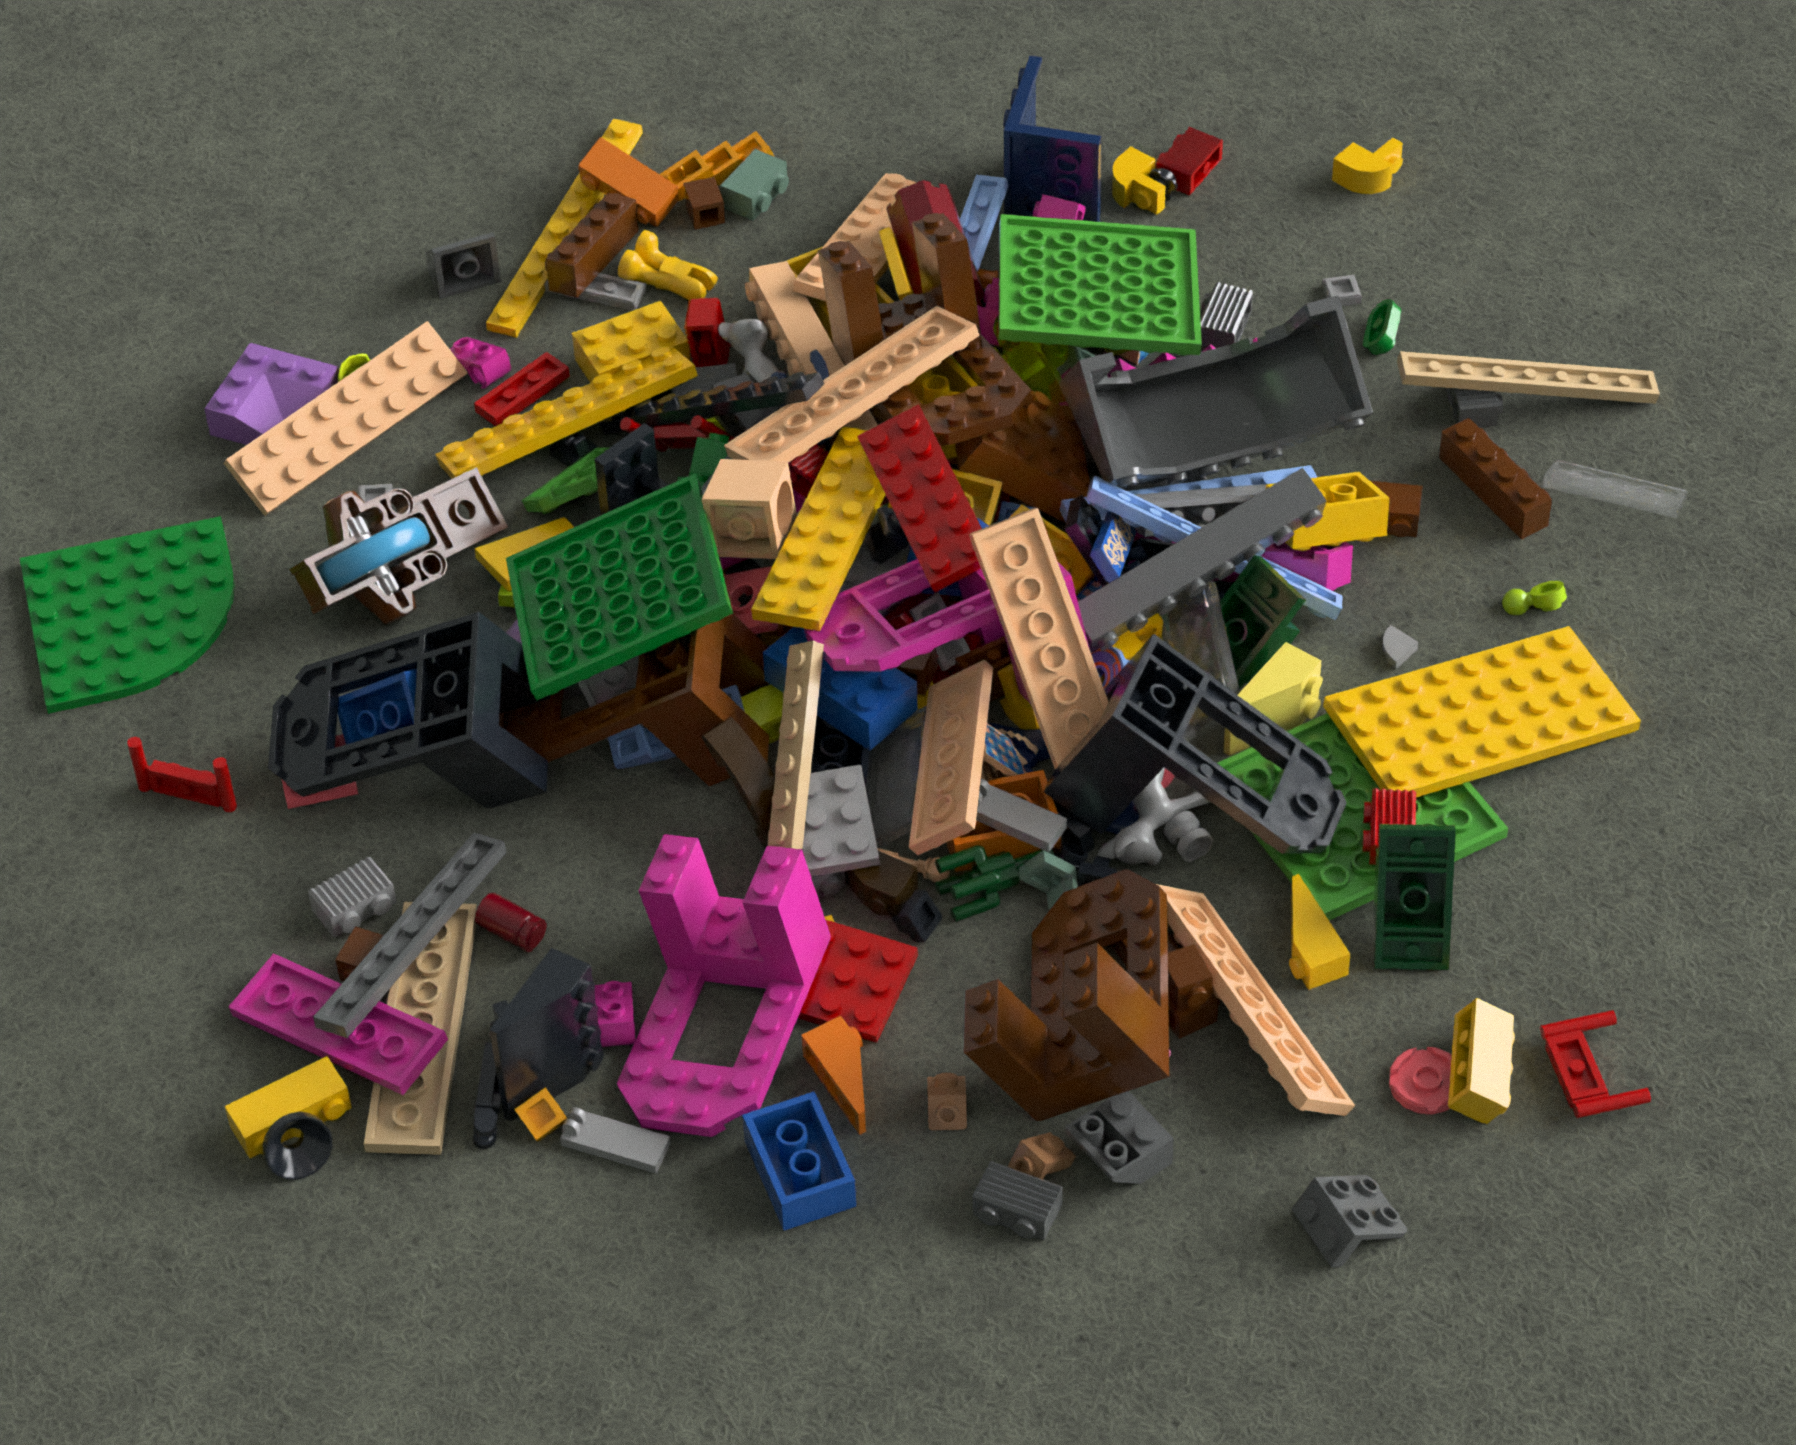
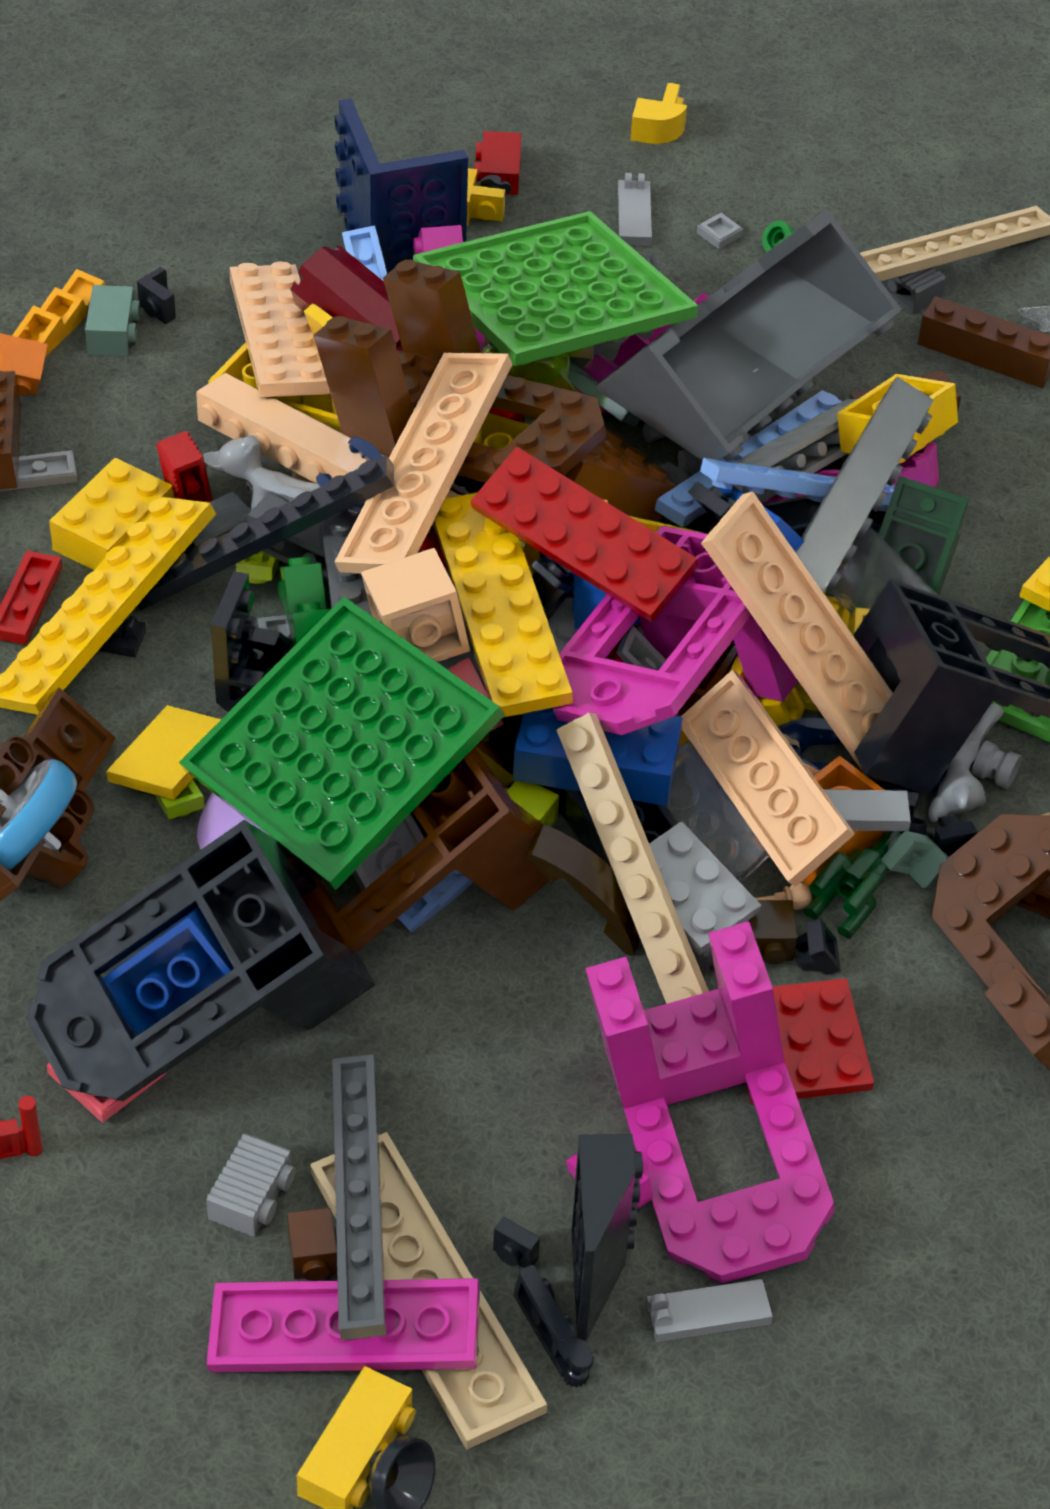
camera: 35 degrees left, 0 degrees up
(510, 922) = (434, 1134): dark red piece -> none
(541, 1114) = (621, 1319): light orange plate -> none
(571, 483) = (163, 656): bright green plate -> none
(673, 275) = (88, 432): yellow piece -> none
(677, 434) = (260, 567): red plate -> none
(704, 203) = (74, 354): reddish brown brick -> none
(799, 1160) = (913, 1241): blue brick -> none
(806, 171) = (156, 297): none -> black bracket
(836, 1060) = (872, 1130): orange slope -> none
(947, 1102) = (992, 1113): medium nougat bracket -> none
(1278, 246) = (634, 210): none -> light grey hinge
(1282, 691) = (984, 581): light yellow slope -> none
(1398, 646) = (1023, 520): light grey tile -> none

